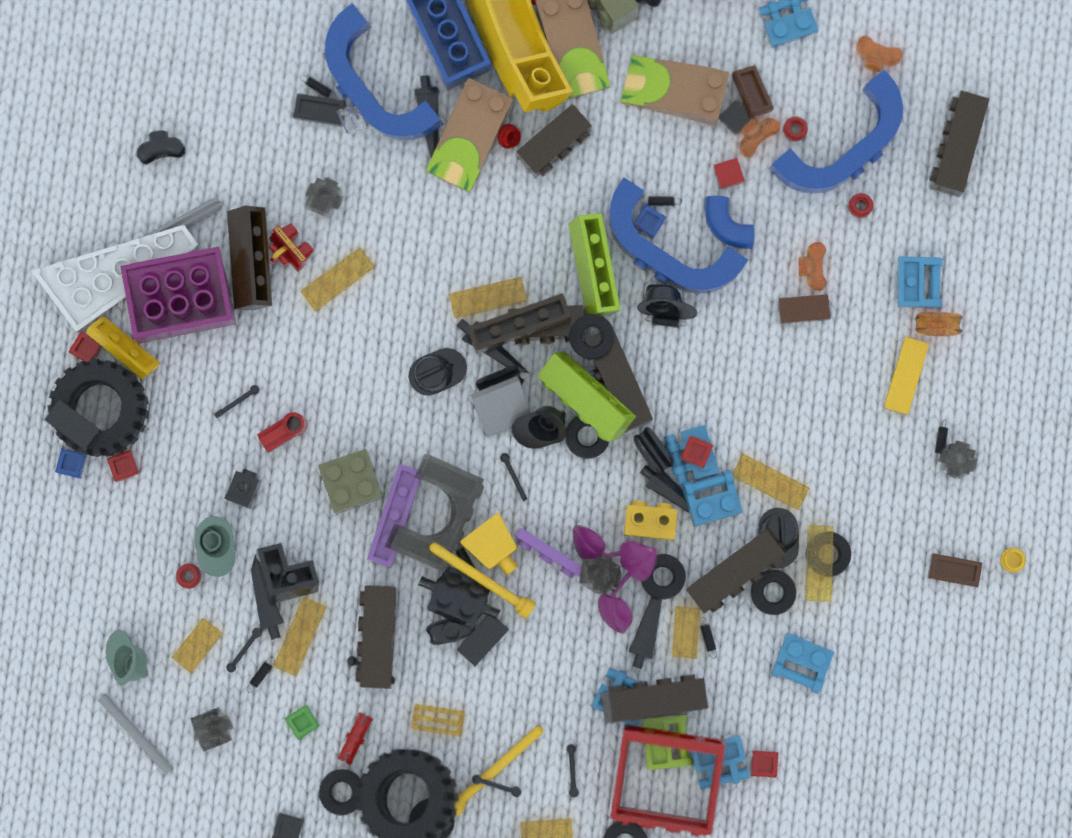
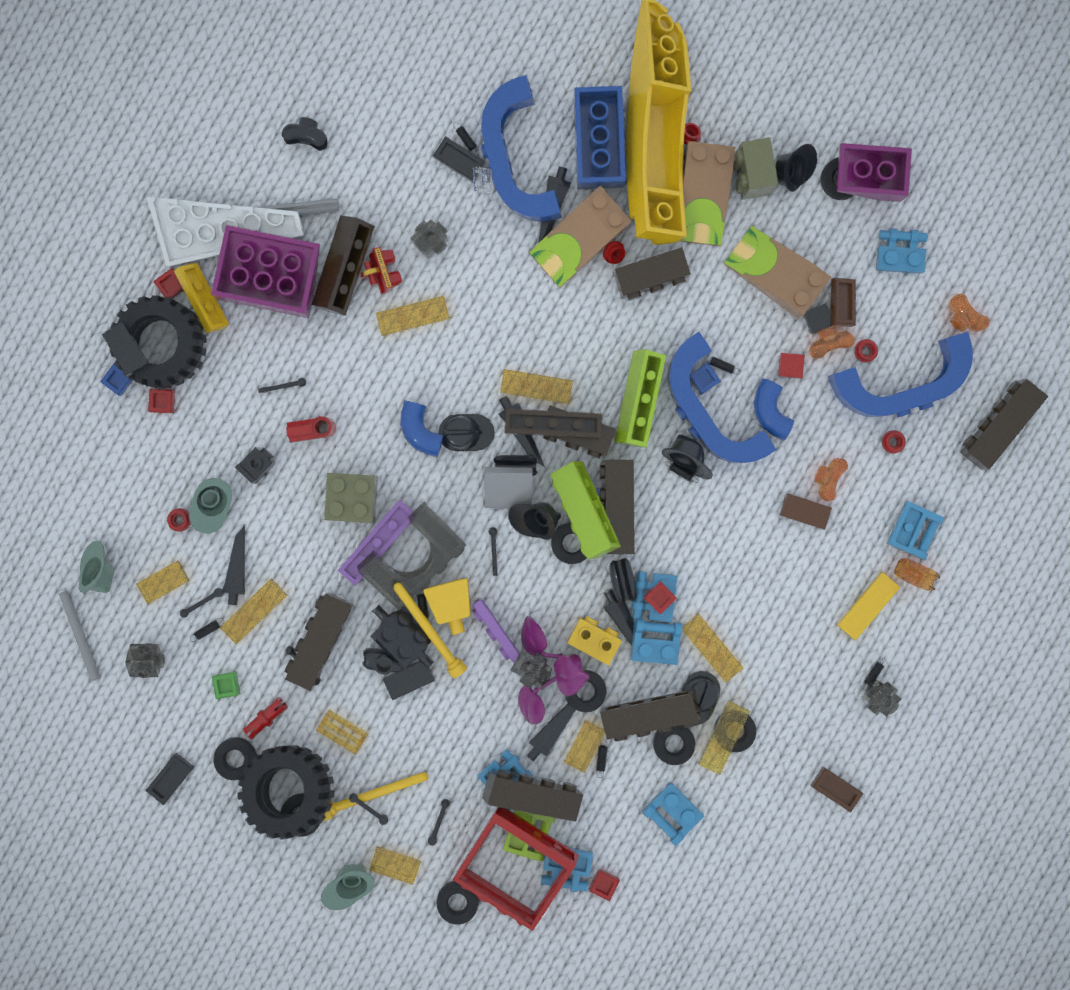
camera: 25 degrees right, 5 degrees up
(285, 581) = (256, 560): black brick -> none
(388, 391) = (415, 431): none -> blue cylinder
(598, 322) = (626, 460): black tyre -> none
(1013, 560) = (890, 801): yellow plate -> none

